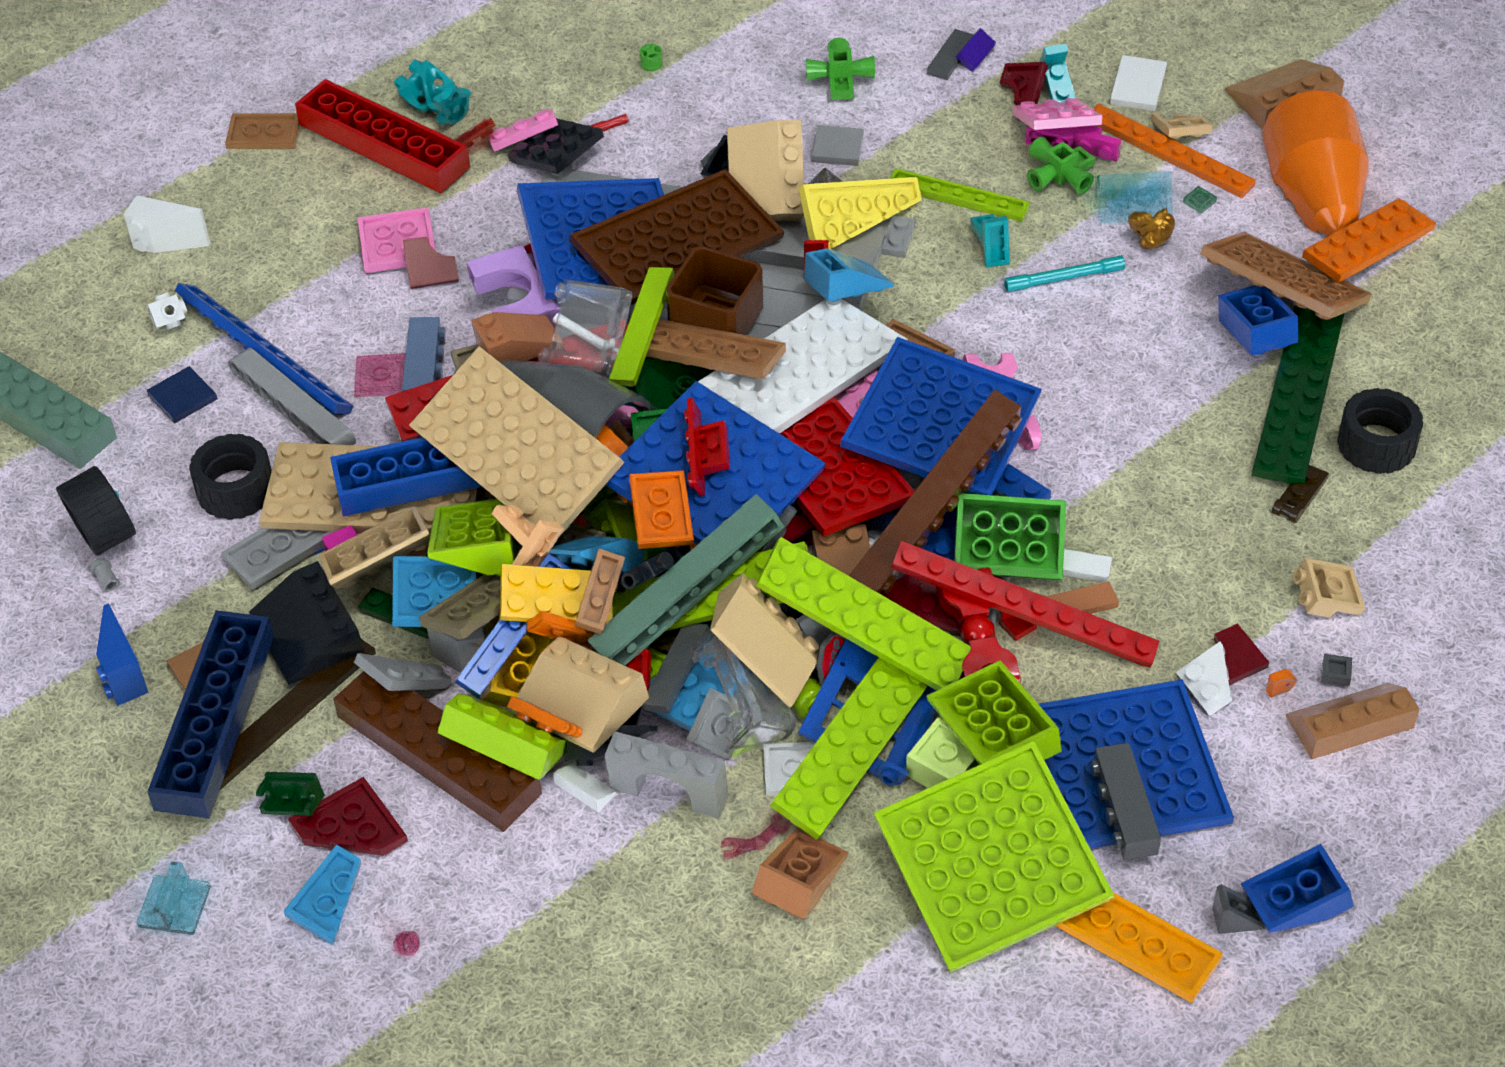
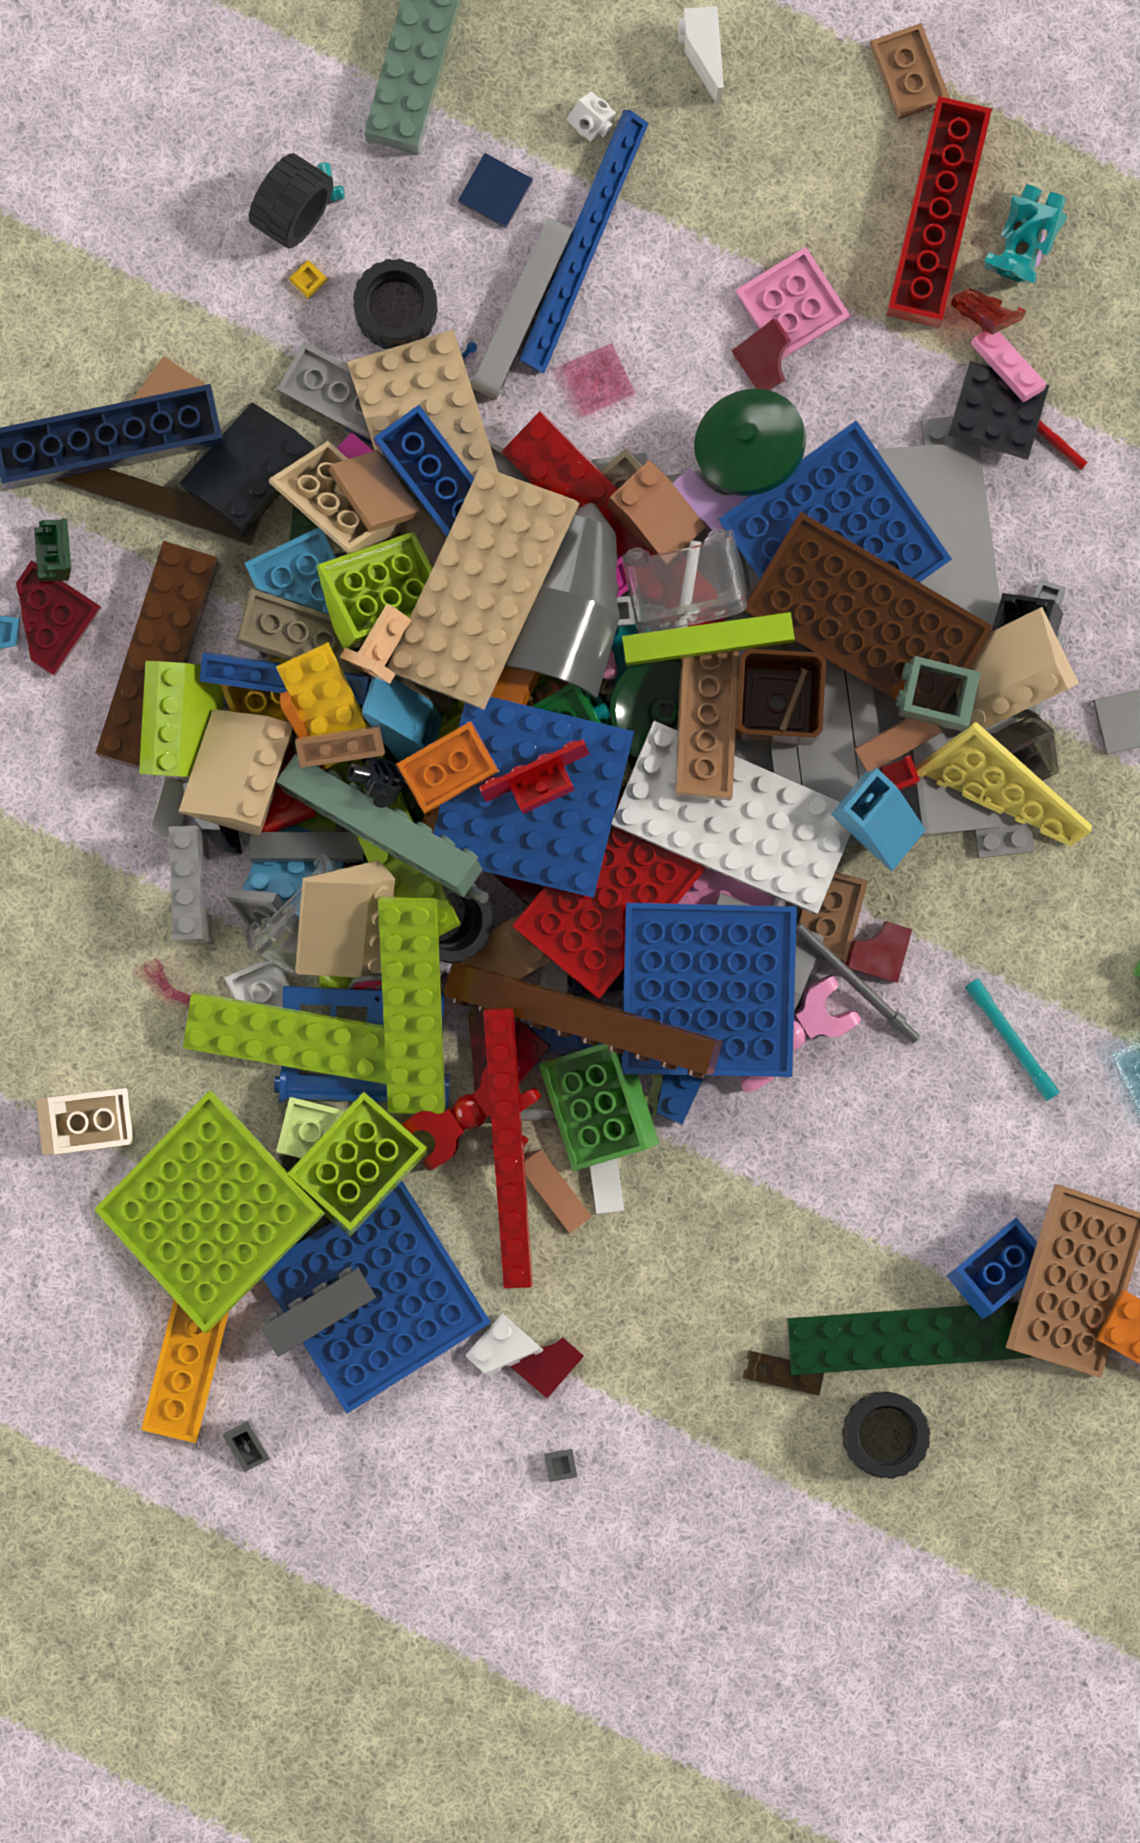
camera: 60 degrees right, 35 degrees up
(102, 570) = (241, 241): light grey pin -> none
(117, 662) = (135, 315): blue slope -> none
(169, 540) = (308, 279): none -> yellow tile
(384, 519) = (374, 491): none -> medium nougat tile
(402, 674) = (211, 590): light grey wing -> none
(423, 351) = (626, 416): sand blue brick -> none
(494, 259) = (750, 442): none -> dark green dish
(546, 720) = (195, 752): orange hinge -> none
(713, 295) = (794, 699): none -> tan piece
(771, 193) = (966, 697): none -> sand green window
(787, 255) = (895, 742): none -> nougat tile
(798, 873) = (145, 1042): nougat slope -> none
(856, 952) = (84, 1121): none -> tan slope
(957, 329) = (882, 954): none -> dark red tile
(967, 196) = (1096, 884): lime tile -> none
(994, 237) = (1033, 942): teal bracket -> none
(1016, 336) = (894, 1019): none -> dark grey bar
(1152, 230) = (1110, 1115): pearl gold hair -> none
(1280, 682) = (524, 1416): orange tile -> none
(1299, 891) = (282, 1493): blue slope -> none
(1328, 588) = (658, 1433): tan plate -> none
(1354, 719) = (509, 1493): medium nougat slope -> none

